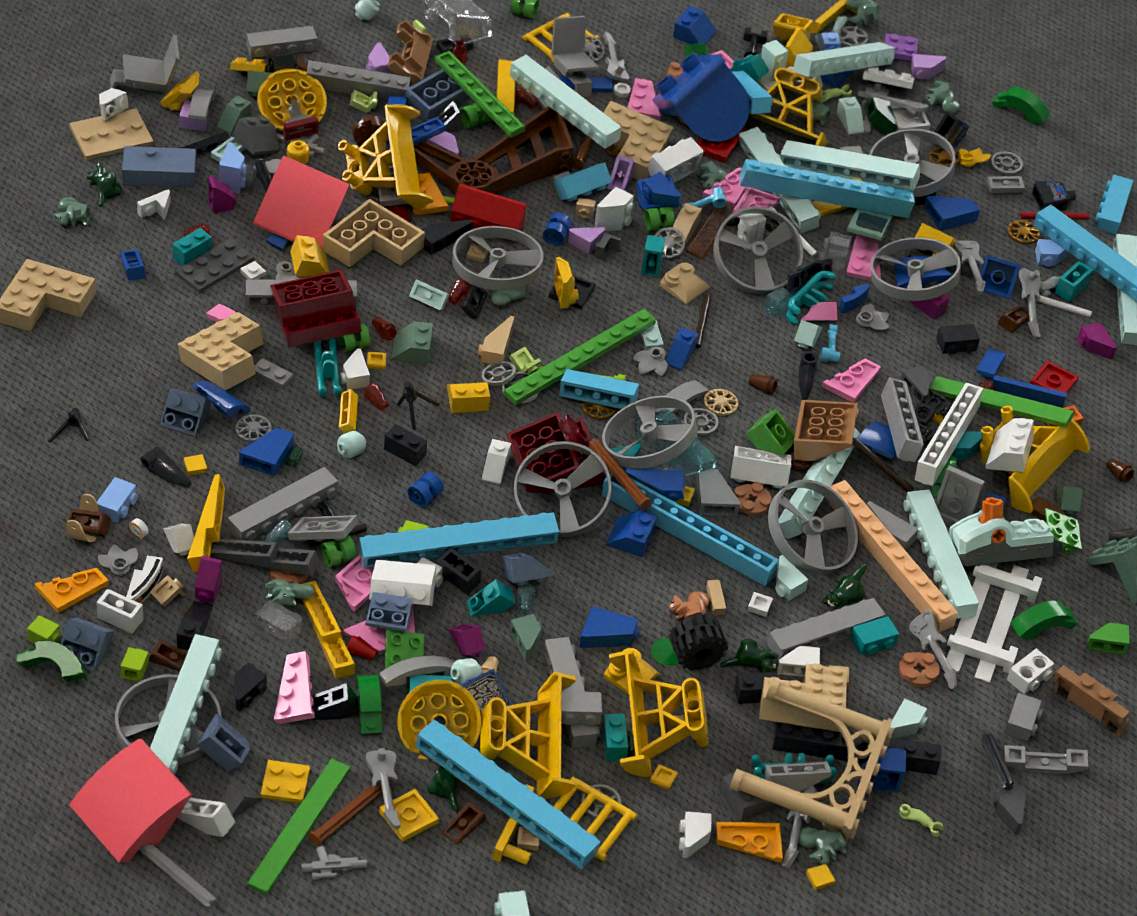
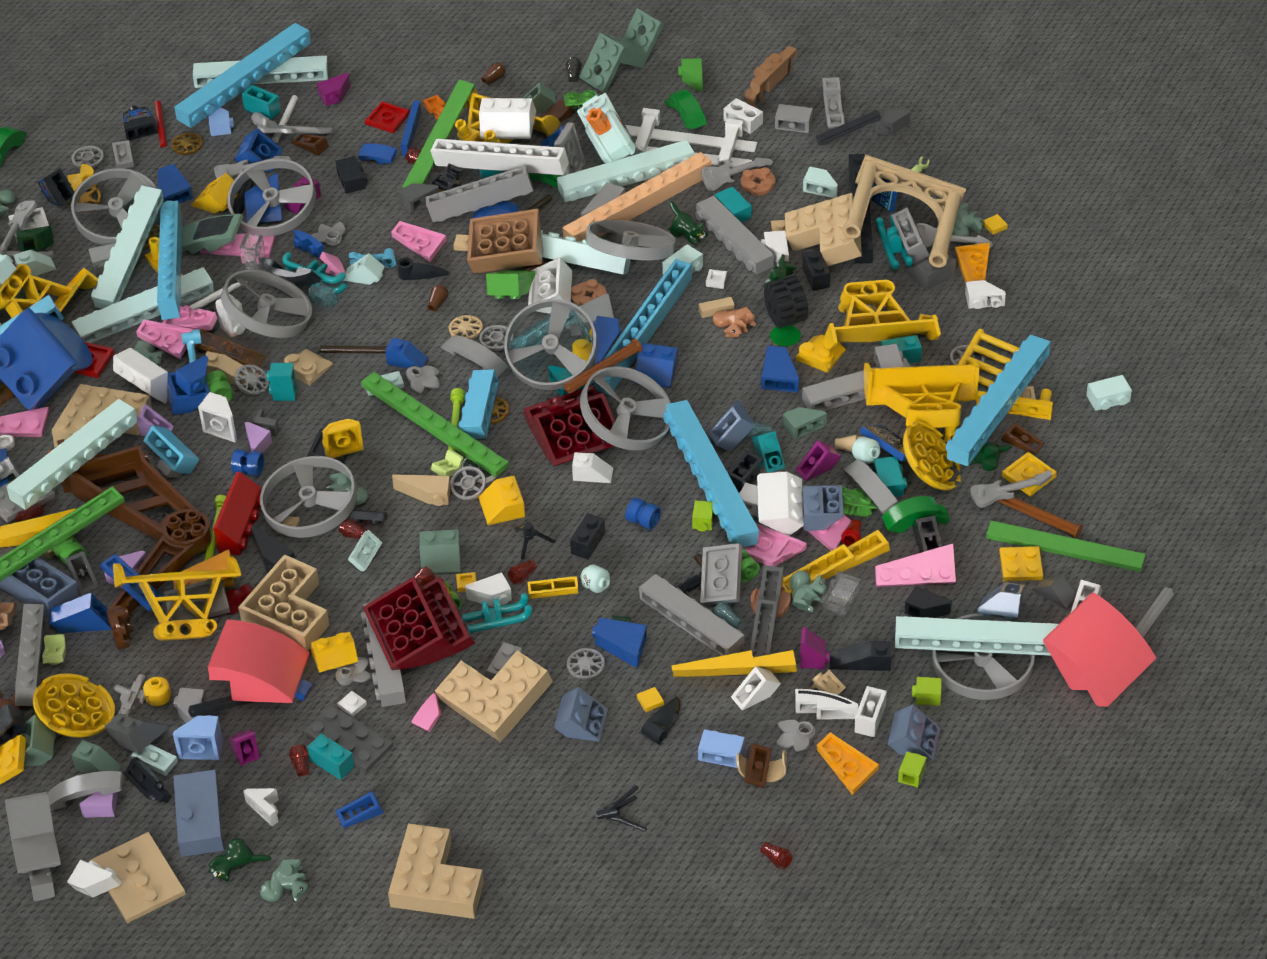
camera: 90 degrees left, 0 degrees up
(54, 653) = (941, 751): arch -> none
(139, 528) = (753, 723): white tile -> none
(167, 655) = (905, 673): reddish brown slope -> none
(181, 92) = (68, 810): yellow slope -> none
(220, 398) = (565, 681): blue slope -> none
(299, 124) = (111, 694): dark red piece -> none
(331, 863) = (1096, 519): light grey piece -> none
(585, 208) = (206, 450): tan bracket -> none
(1113, 204) = (143, 83): medium azure brick -> none

